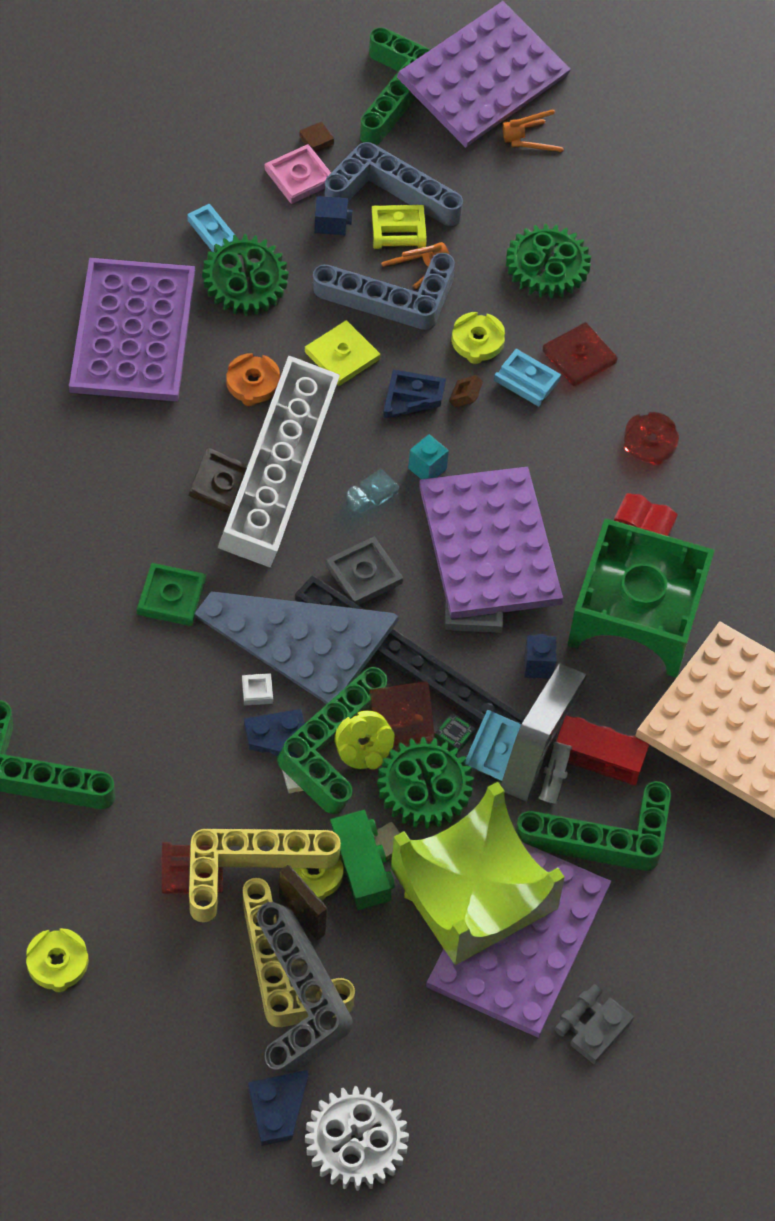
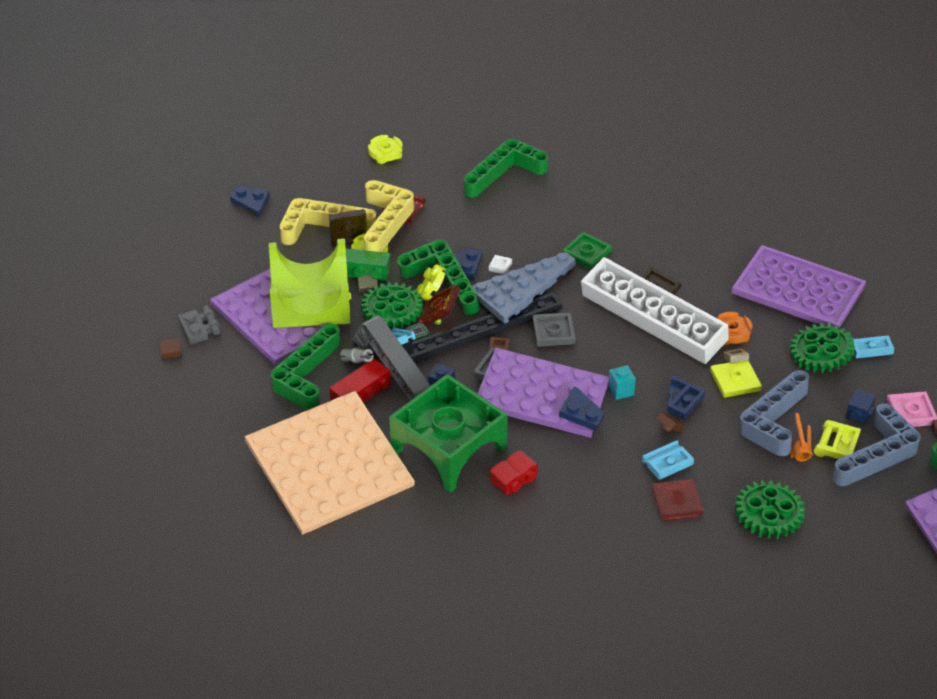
camera: 120 degrees right, 15 degrees down
(306, 987) = (301, 206): dark grey beam -> none
(308, 354) = (736, 355): none -> dark tan tile
(373, 1160) = (195, 215): white gear -> none
(376, 488) = (613, 356): clear light blue plate -> none
(426, 627) = (502, 343): none -> reddish brown tile
(478, 349) = (712, 456): neon yellow plate -> none
(508, 479) = (581, 410): none -> dark blue wing
(515, 130) = (911, 540): orange plant -> none
(647, 450) = (578, 515): clear red plate -> none
(661, 1036) = (170, 348): none -> reddish brown tile

